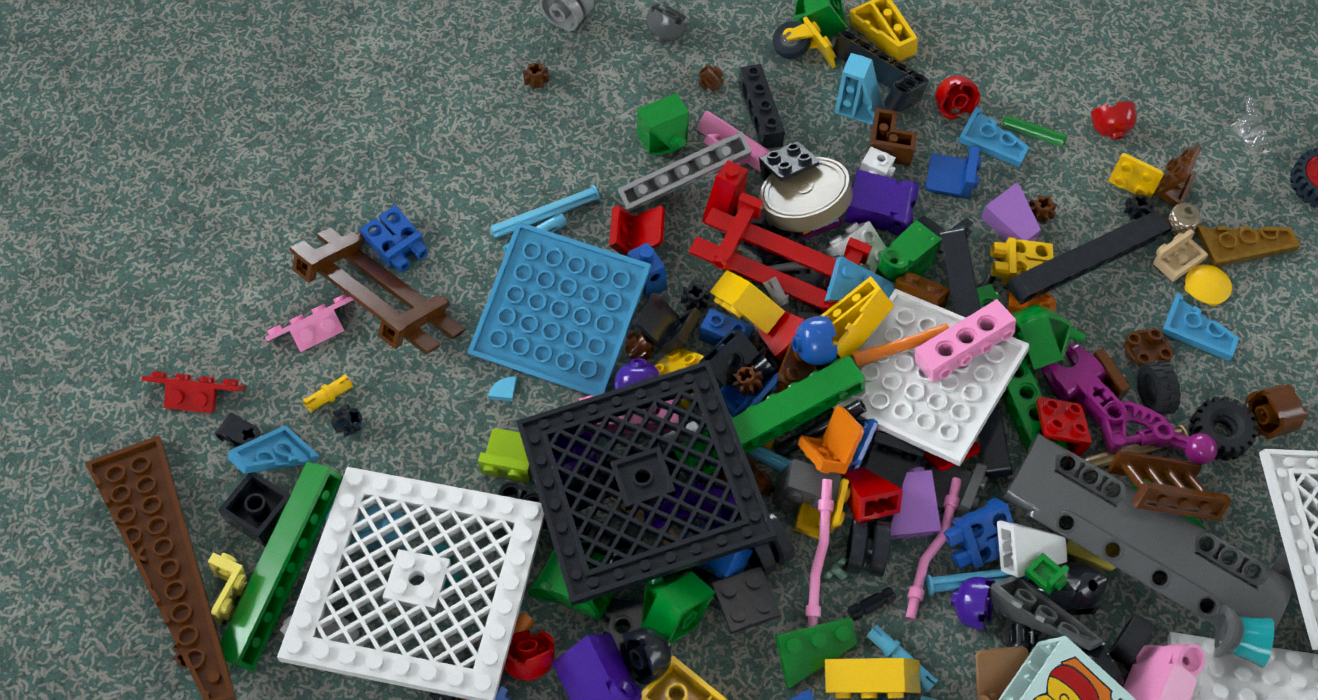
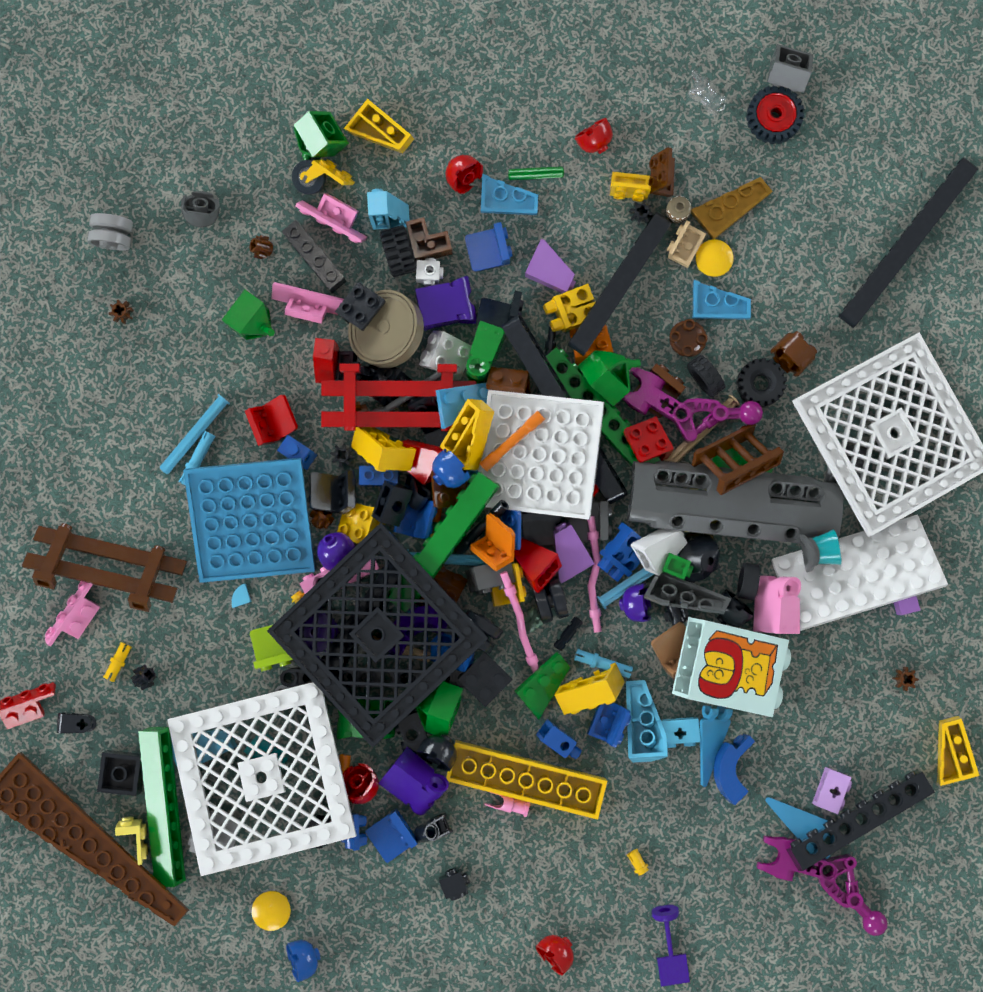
camera: 25 degrees left, 25 degrees up
(272, 451) = (106, 728): dark azure wing -> none
(394, 239) = (99, 518): blue hips -> none
(684, 171) = (284, 355): light grey brick -> none
(748, 381) = (420, 517): reddish brown gear -> none
(776, 293) = (401, 432): light grey pin -> none
(804, 80) = (335, 214): none -> bright pink bracket
(854, 131) = (398, 251): none -> black tyre
(904, 82) = (398, 172): black beam -> none
(971, 329) = (557, 410): bright pink brick -> none
(1043, 208) = (573, 249): reddish brown gear -> none

